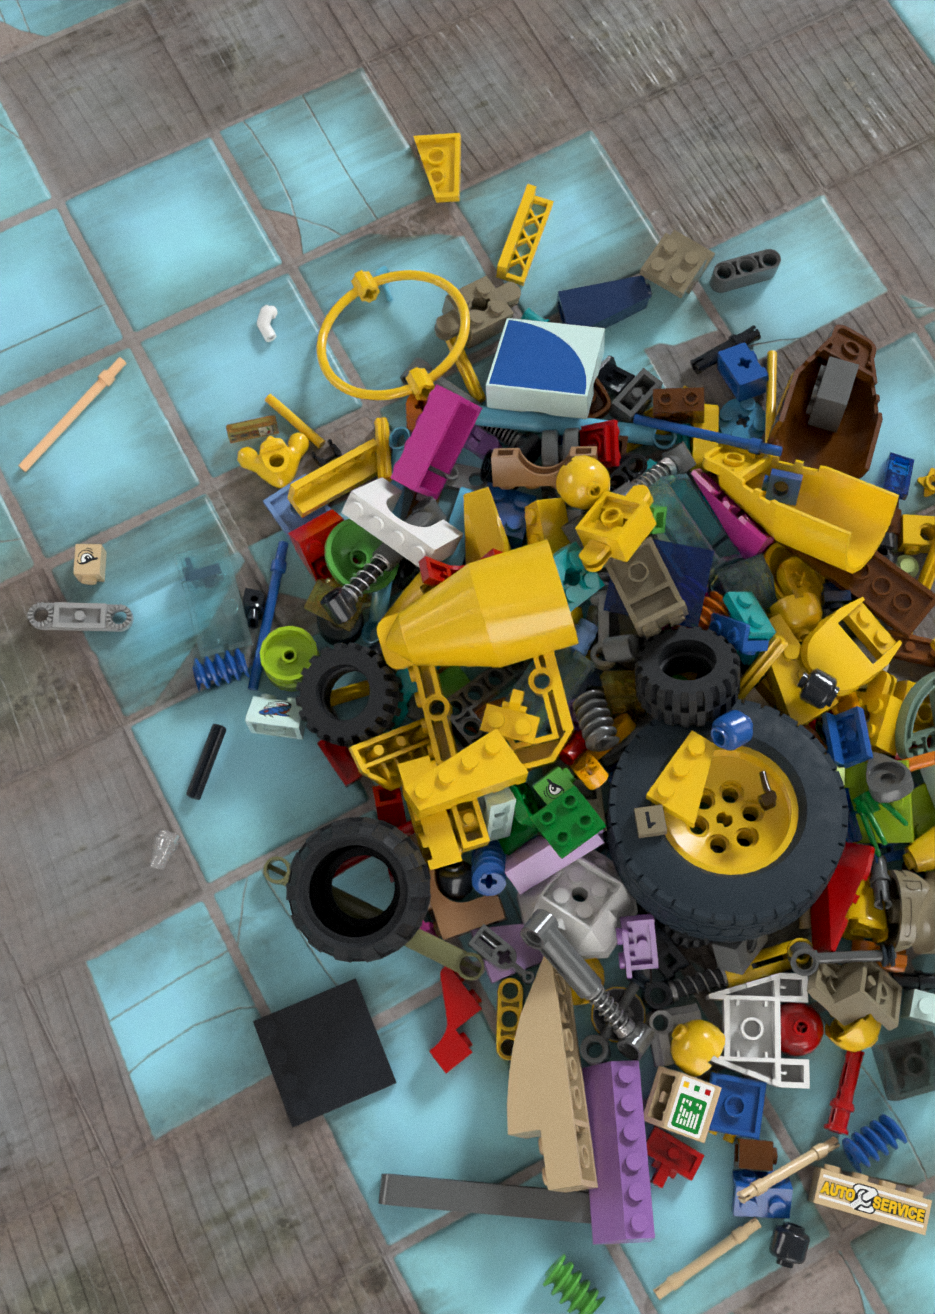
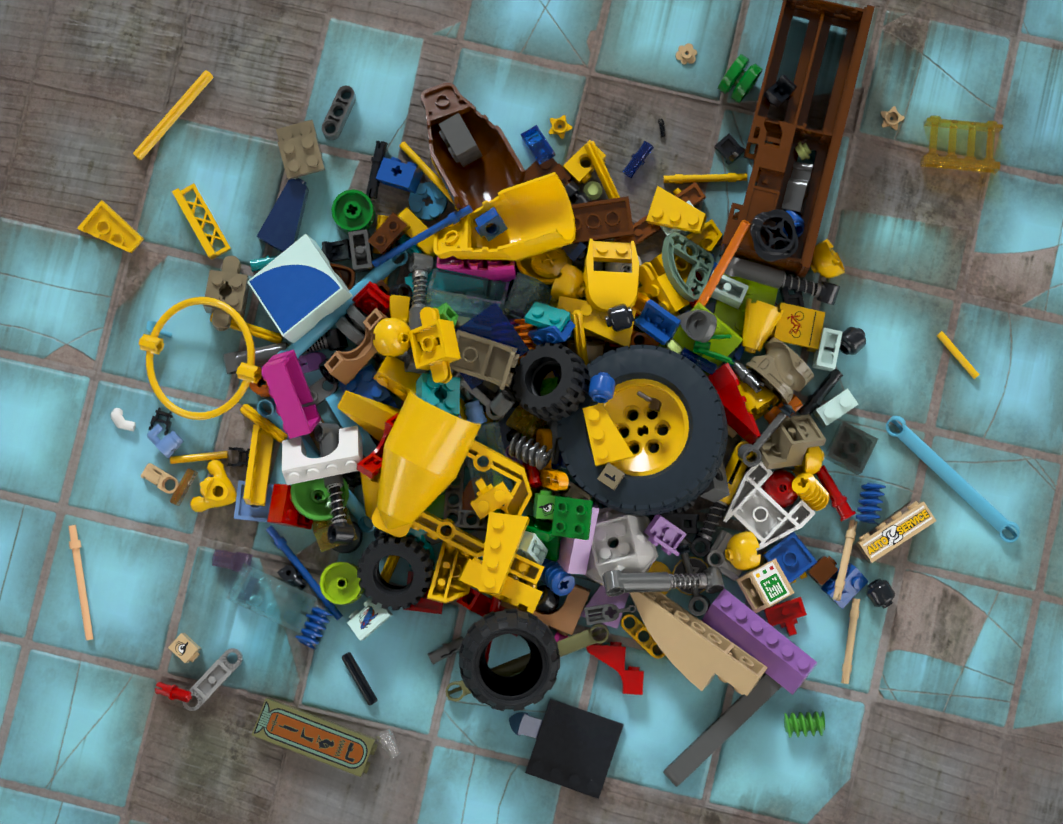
camera: 40 degrees left, 10 degrees up
(34, 588) = (173, 692): none -> red axle
(105, 768) = (314, 737): none -> brick
(217, 531) = (230, 560): none -> clear purple piece
(240, 398) = (158, 477): none -> tan piece
(279, 380) = (168, 444): none -> medium blue piece
(302, 366) = (155, 418): none -> black piece
(305, 821) = (445, 651): none -> dark grey pin
(305, 976) = (524, 724): none -> tile
(580, 133) = (173, 115): none -> yellow axle
(619, 470) = (399, 307): none -> yellow piece
(667, 356) = (353, 201): none -> green wheel
(826, 1062) = (810, 491): none -> yellow piece

